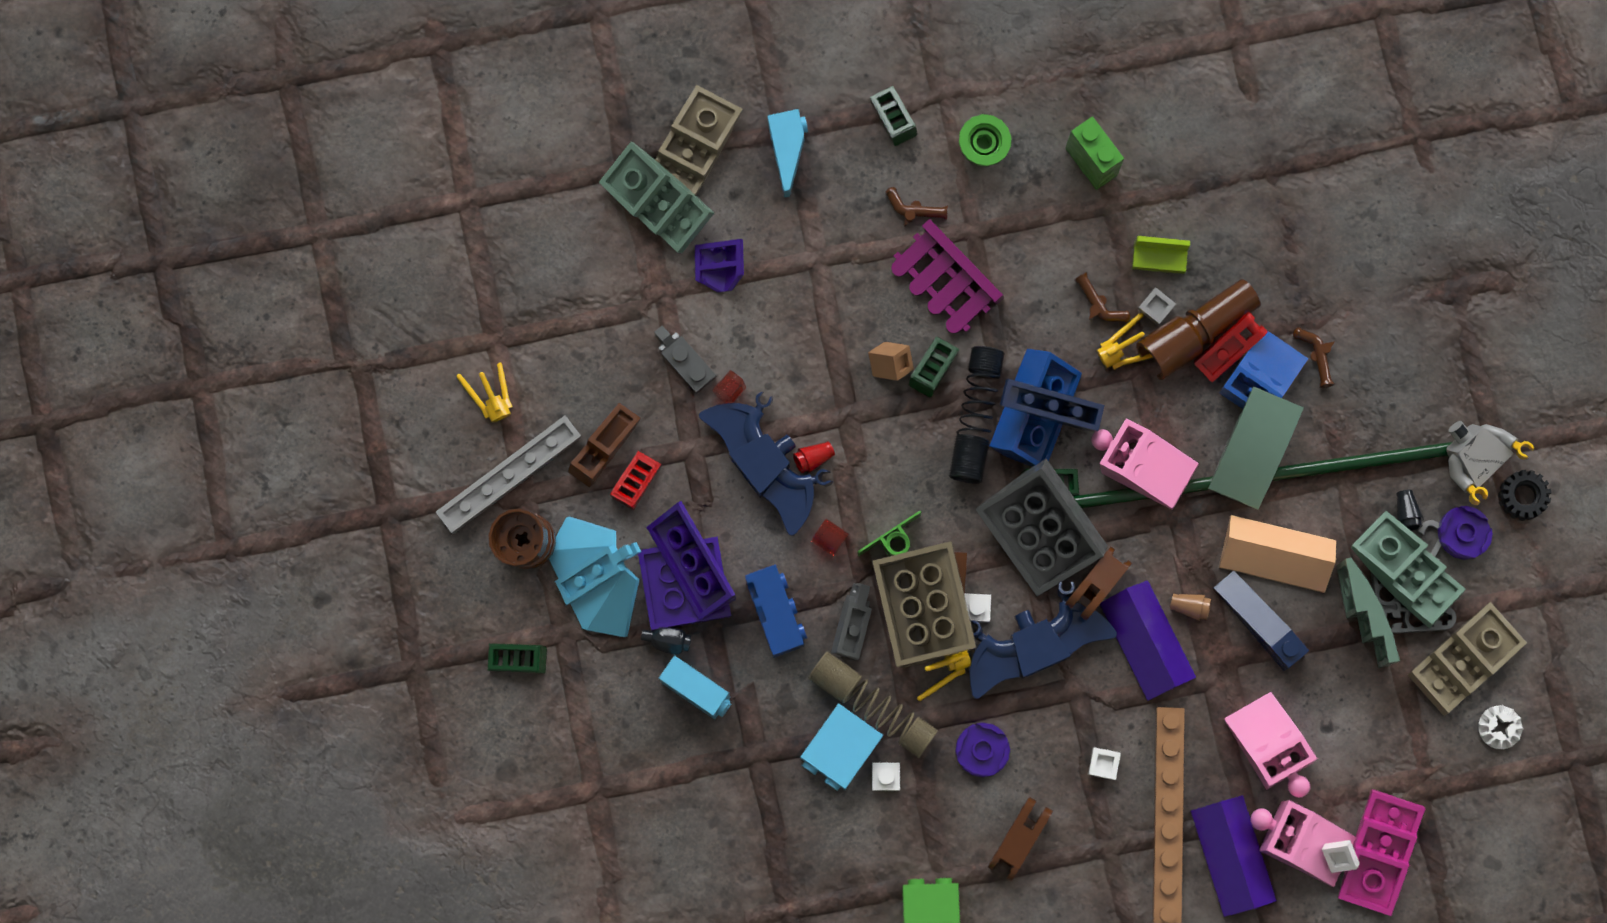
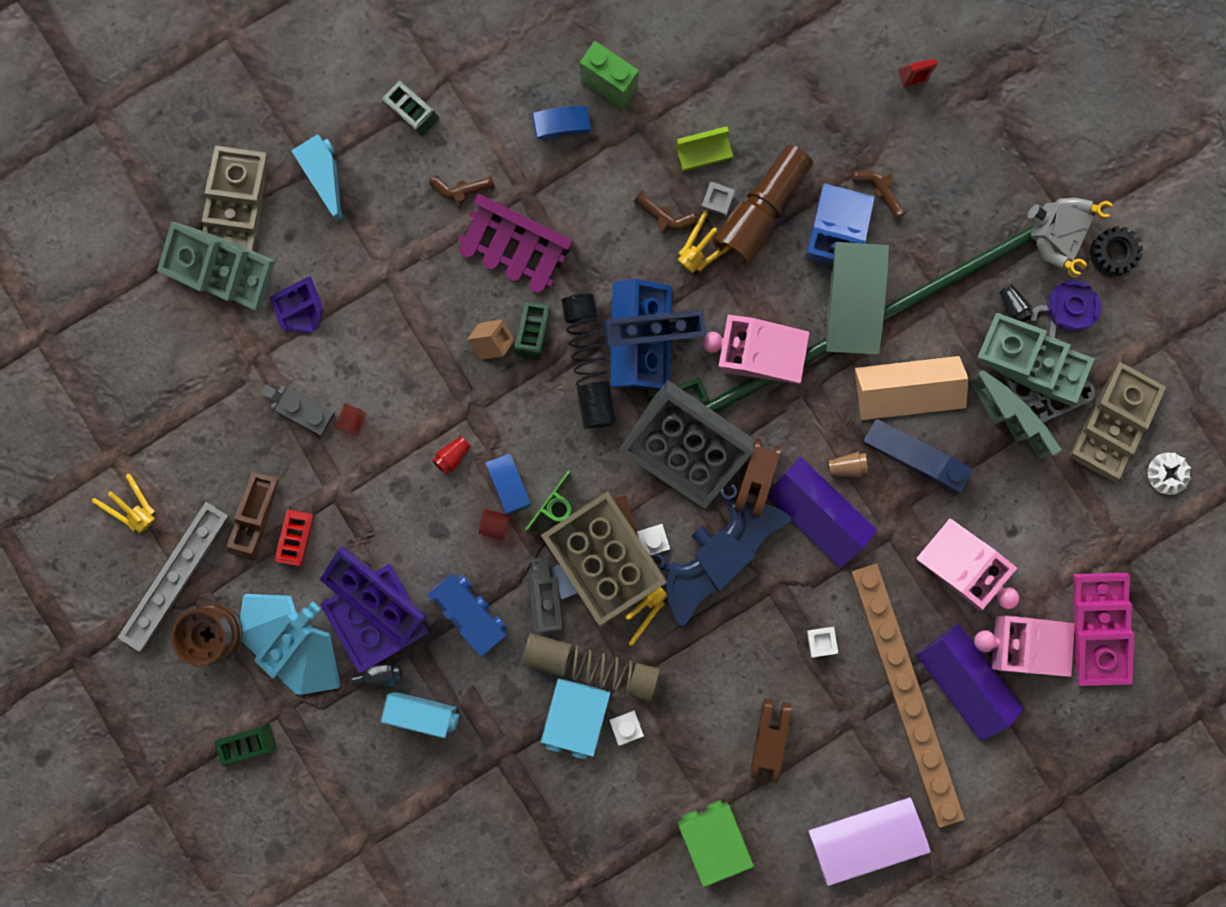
camera: 20 degrees left, 5 degrees up
(764, 461) = (407, 476): dark blue torso -> none
(857, 503) = (508, 484): none -> blue slope
(877, 619) = (564, 584): none -> sand blue piece
(982, 750) = (706, 669): dark purple tile -> none
(984, 140) = (502, 100): bright green piece -> none
(1032, 179) = (560, 121): none -> blue slope
(1229, 347) = (799, 212): red plate -> none
(1340, 856) = (1069, 649): white plate -> none
(1391, 255) = (917, 72): none -> red slope

